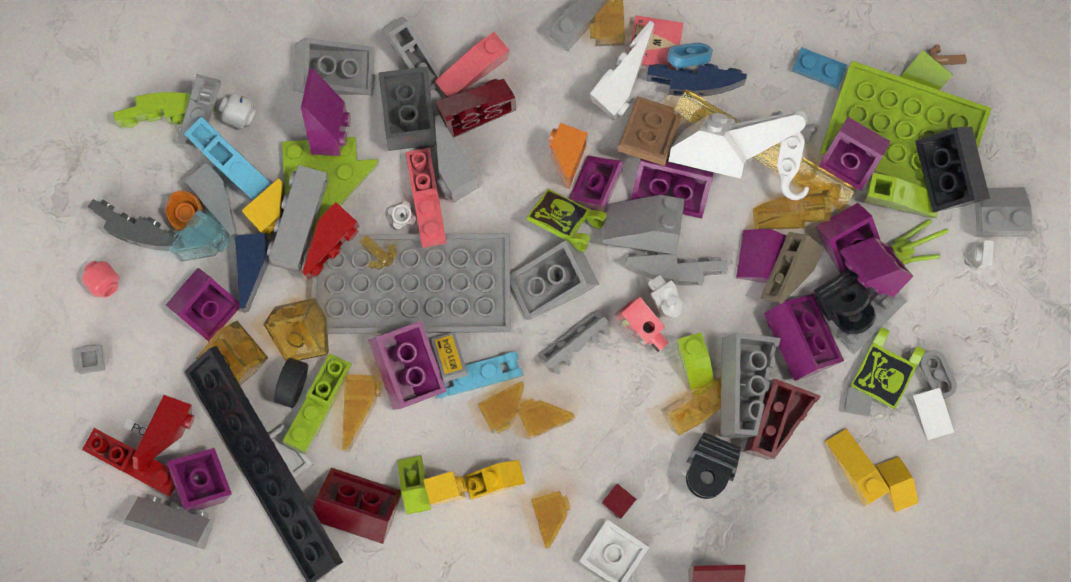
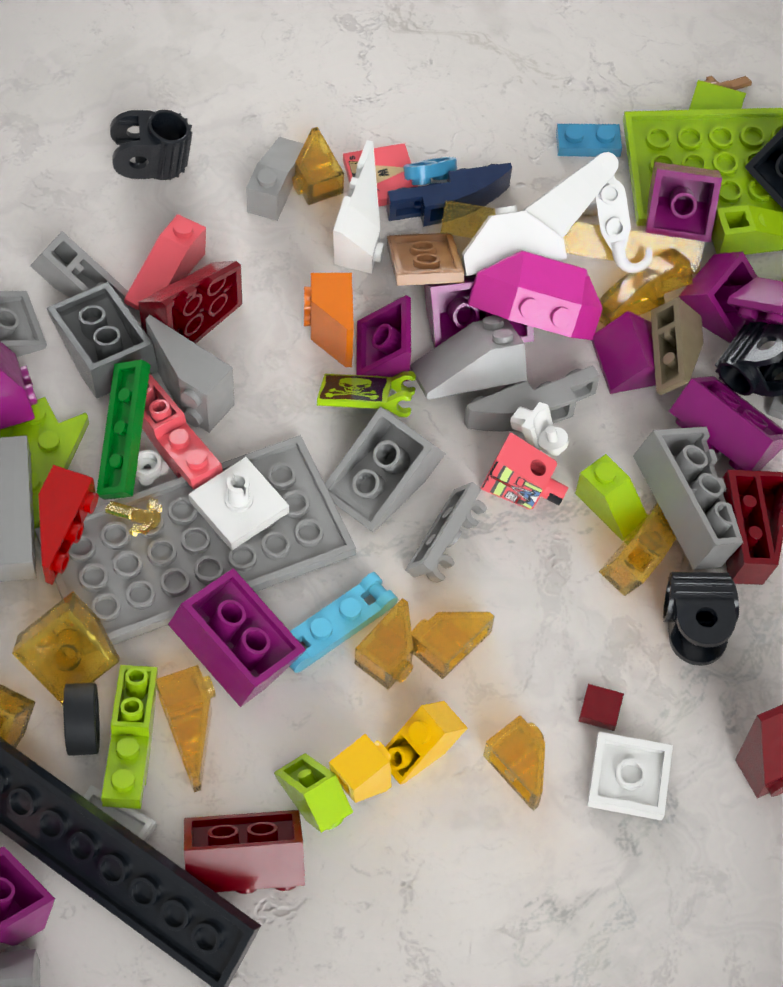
camera: 30 degrees left, 20 degrees down
(393, 188) = (123, 430): none -> green plate
(447, 269) = (238, 503): none -> white tile
(449, 357) = (292, 608): tile -> none
(711, 197) = (539, 294): none -> dark pink wedge

